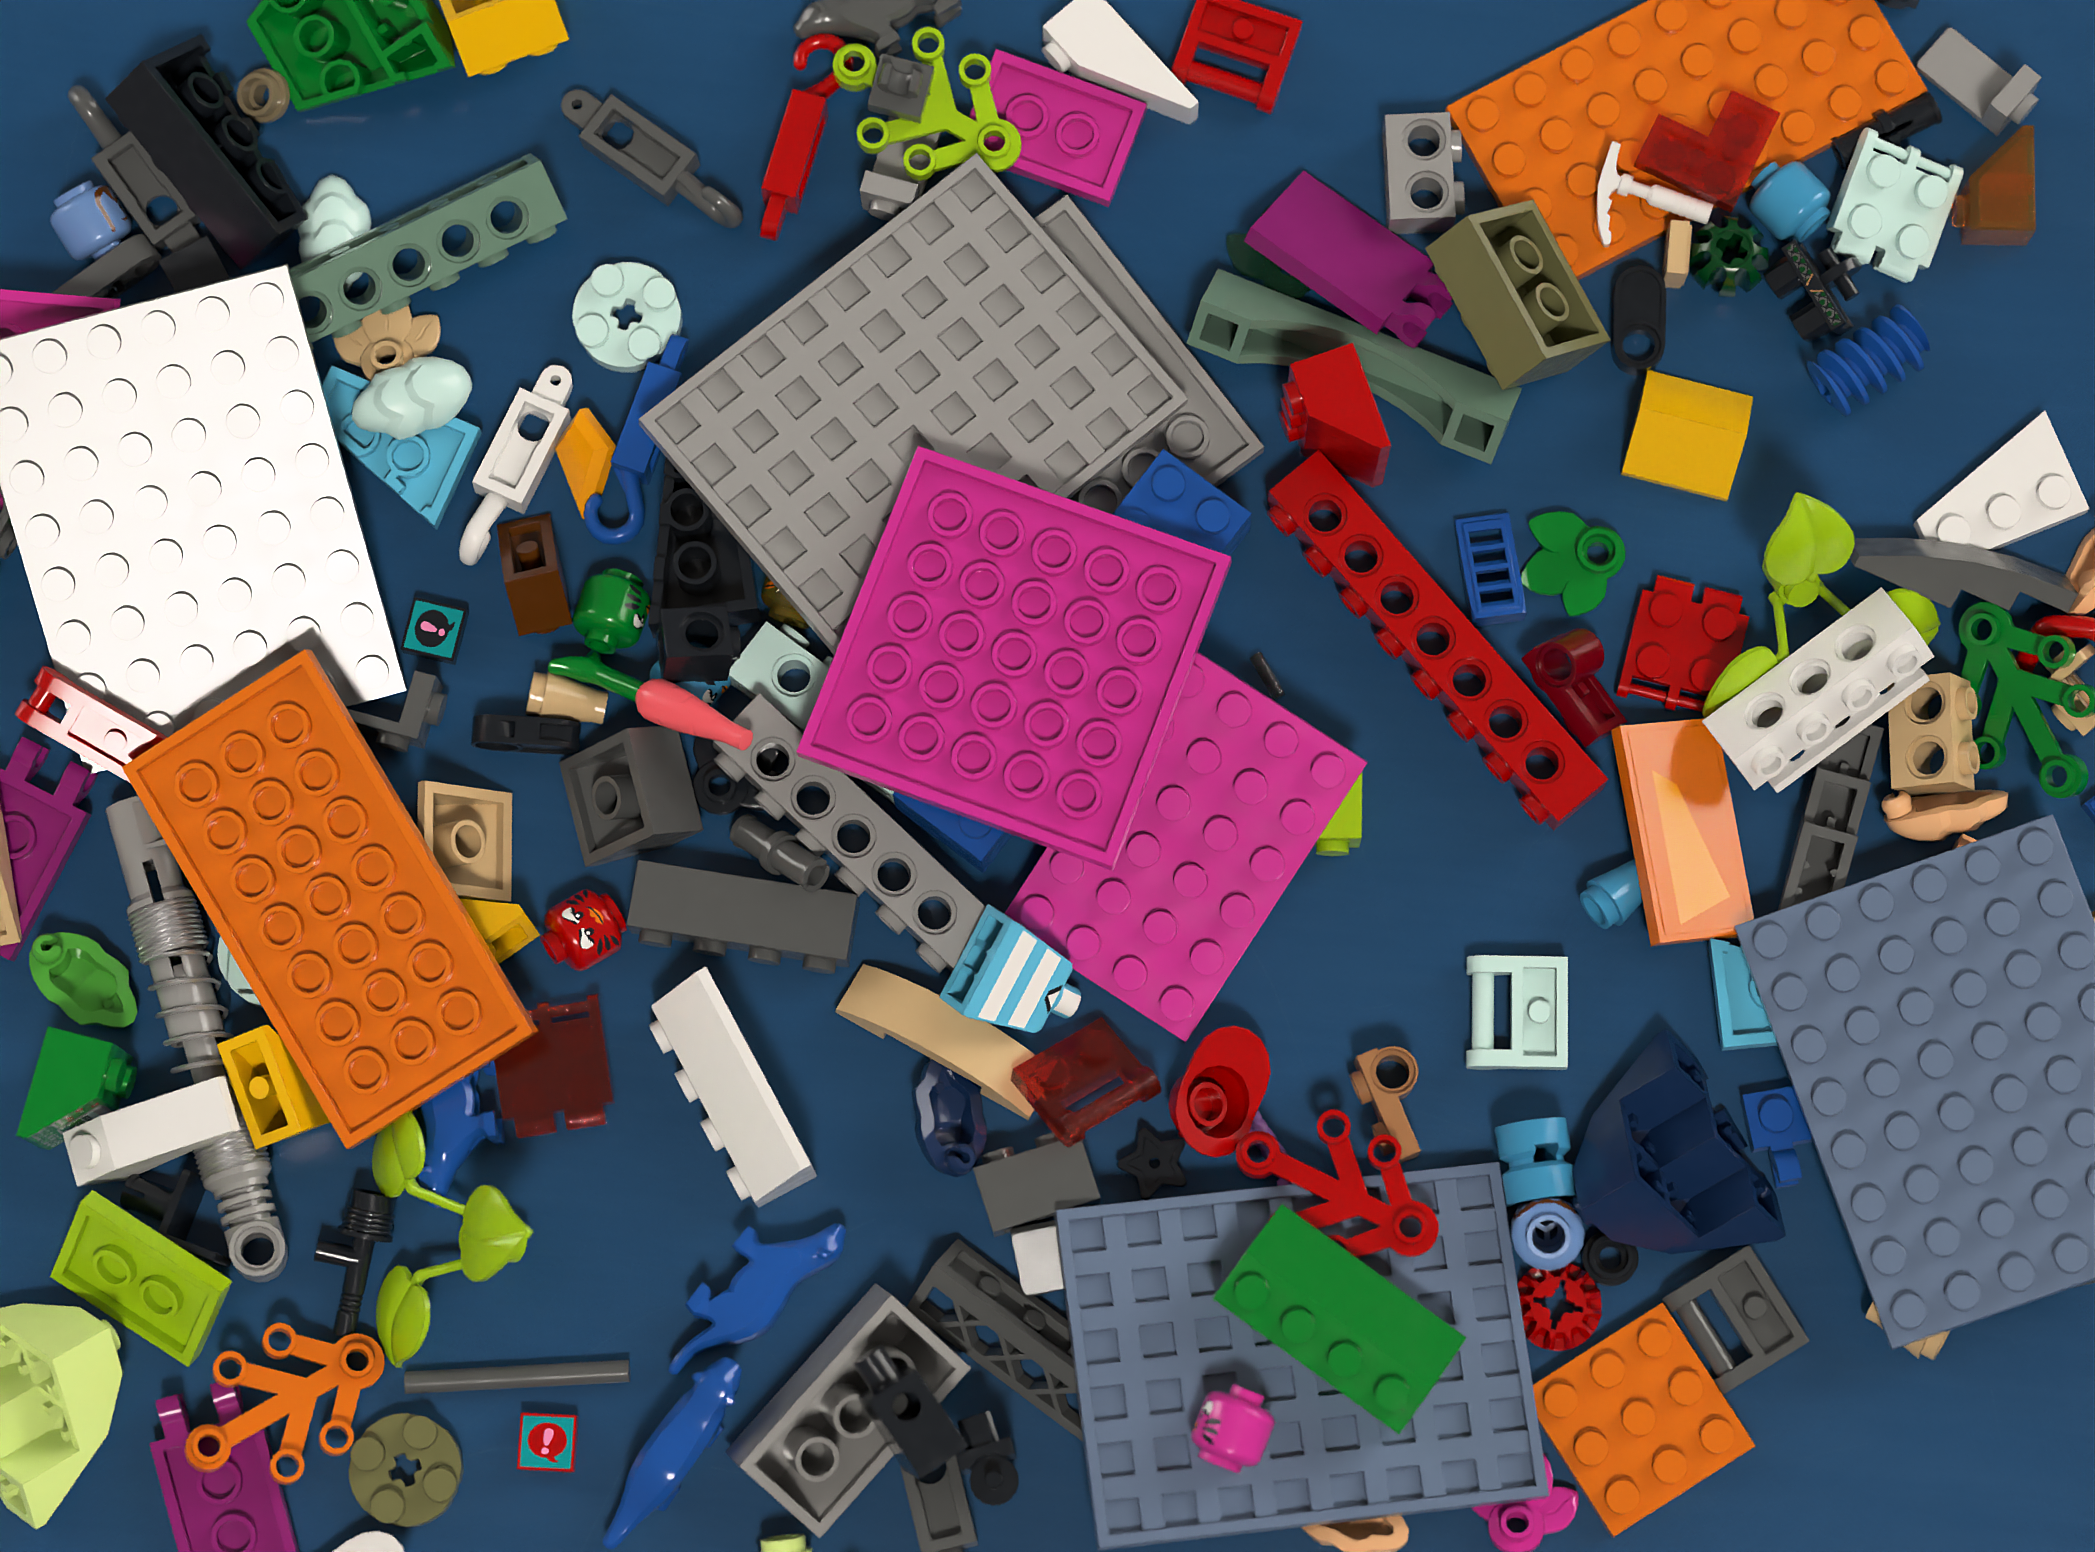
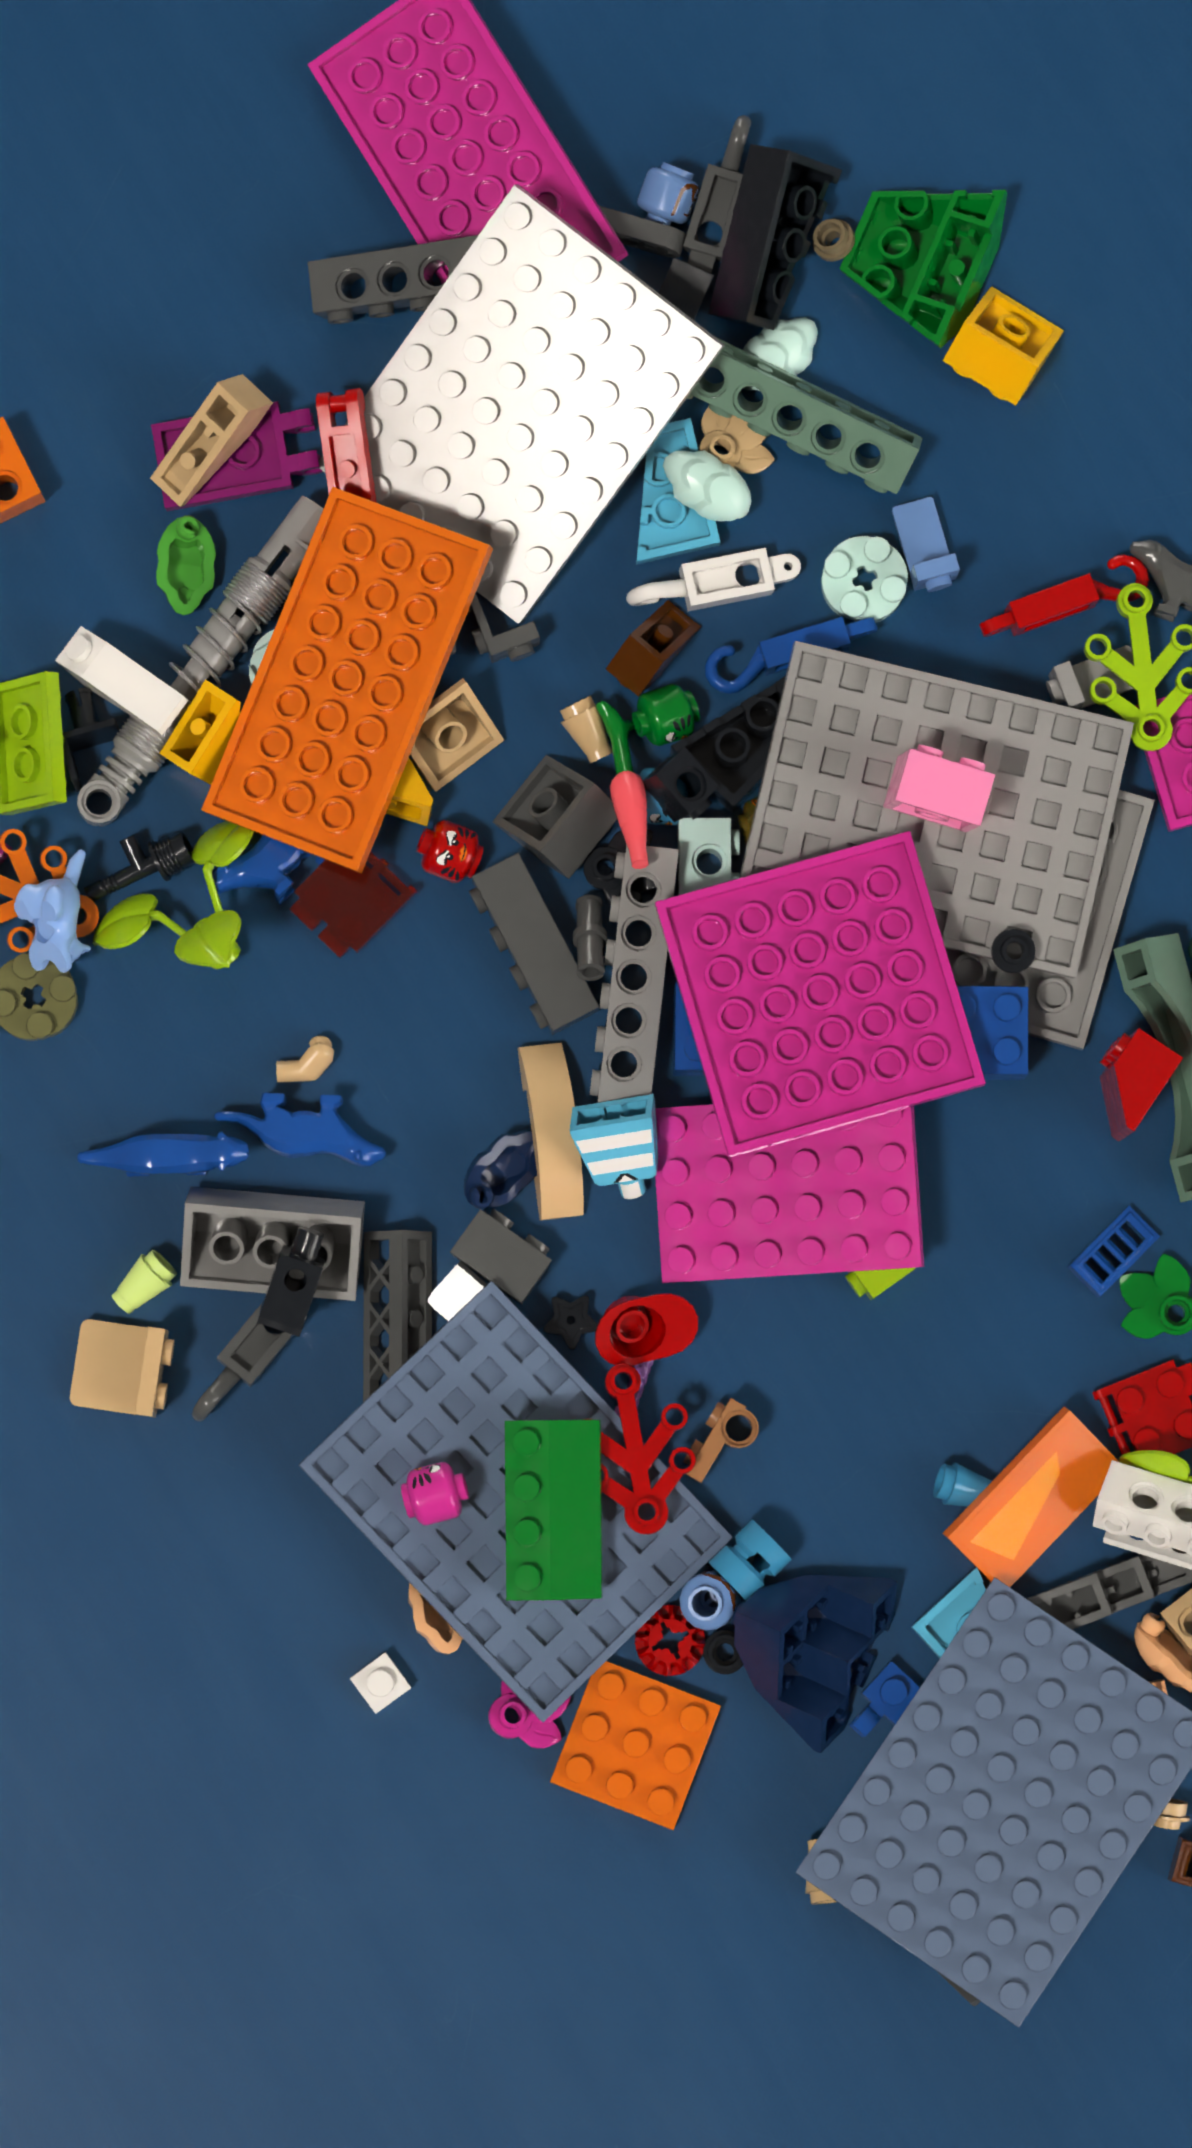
camera: 45 degrees right, 5 degrees up
(73, 1084) = (114, 610): green slope -> none
(336, 1380) = (54, 912): none -> light blue animal
(434, 631) = (570, 612): tile -> none
(517, 1376) = (142, 1022): dark grey bar -> none
(525, 734) = (546, 720): black piece -> none
(547, 1442) = (115, 1072): tile -> none
(585, 456) = (752, 622): light orange piece -> none
(640, 231) = (925, 545): none -> medium blue bracket
(650, 160) = (978, 516): dark grey piece -> none
(693, 1236) = (310, 1065): none -> tan arm
(732, 1090) = (418, 1021): white slope -> none
(899, 383) = (939, 789): none -> bright pink brick
(901, 88) = (1141, 642): dark grey tile -> none
(988, 1460) = (307, 1351): black hips -> none
(1077, 1069) = (590, 1226): clear red plate -> none
(1111, 453) = (999, 952): none -> black plate
(1267, 676) = (937, 1160): clear smoke piece -> none
(1320, 486) = (1084, 1102): red brick -> none
(1536, 1012) = (846, 1491): light aqua plate -> none
(1574, 688) = (1079, 1351): dark red plate -> none
(1752, 1310) = (757, 1767): dark grey plate -> none

